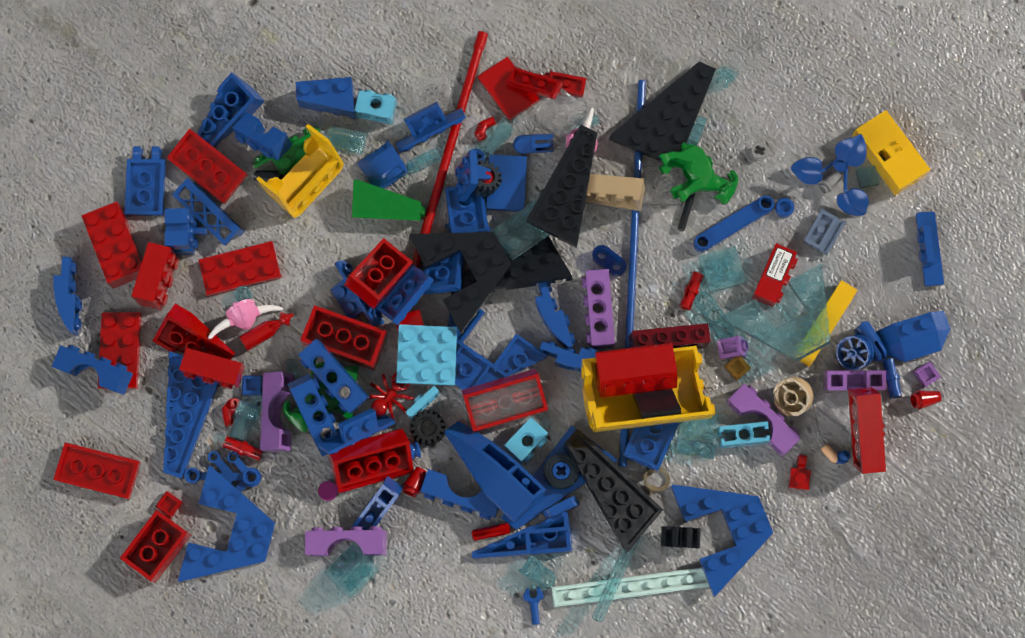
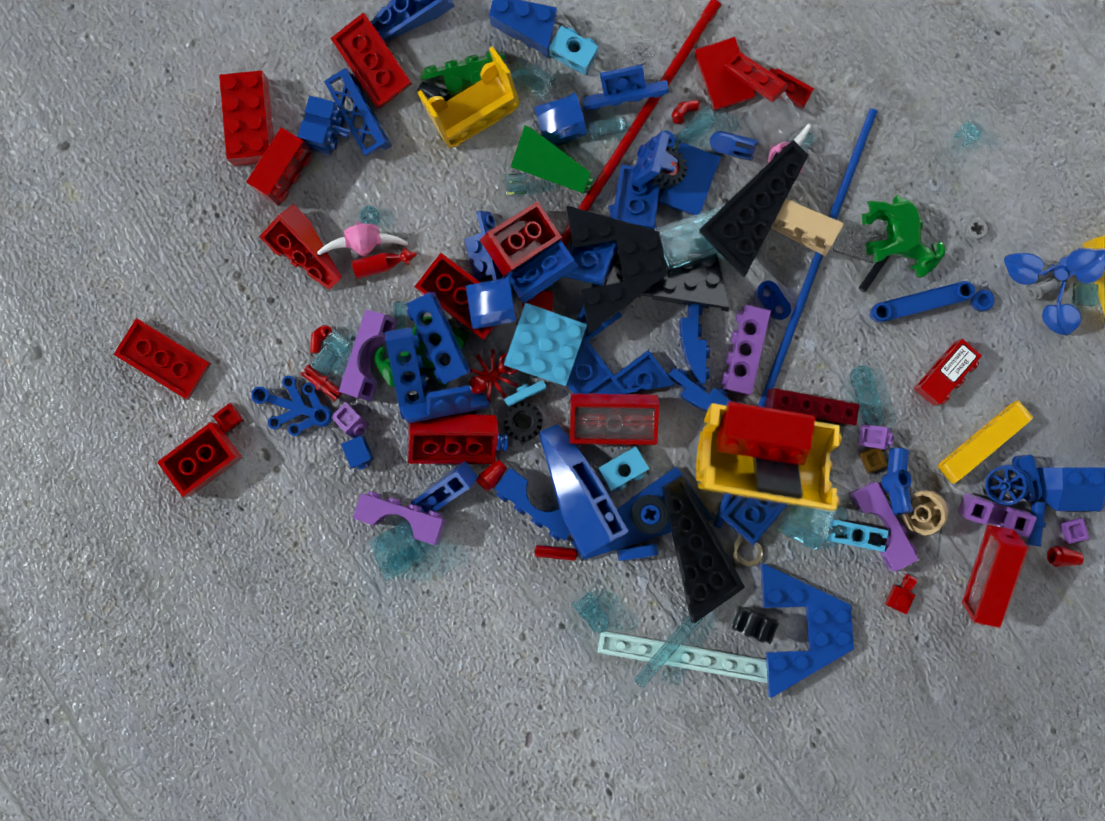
camera: 20 degrees right, 10 degrees up
(67, 302) = (178, 166): blue slope -> none
(110, 376) = (201, 263): blue arch -> none
(121, 341) = (221, 236): red plate -> none
(145, 183) = (300, 59): blue tile -> none
(185, 414) = (277, 317): blue wing -> none
(211, 368) = (311, 288): red brick -> none
(239, 268) = (374, 186): red plate -> none
(249, 535) = (301, 478): blue wing -> none
(252, 385) = (351, 317): blue tile -> none
(271, 144) = (447, 56): blue arch -> none
(277, 473) = (350, 420): none -> medium lavender bracket
(292, 498) = (358, 452): none -> blue brick
(327, 491) = (397, 456): magenta tile -> none
(360, 230) = (516, 183): none -> clear light blue tile
(370, 334) = (490, 303): none -> blue slope
(534, 605) = (577, 642): blue bar -> none
(543, 538) = (609, 578): blue wedge -> none
(668, 117) = (890, 161): black wing -> none
(691, 291) = (851, 361): red pin -> none
(697, 130) = (916, 185): clear light blue beam -> none
(722, 270) = (901, 348): clear light blue plate -> none
(761, 377) = (897, 481): none -> blue piece
(798, 336) = (955, 449): clear light blue wing -> none
(824, 232) = (1017, 341): sand blue plate -> none
(836, 457) = (946, 588): arm -> none

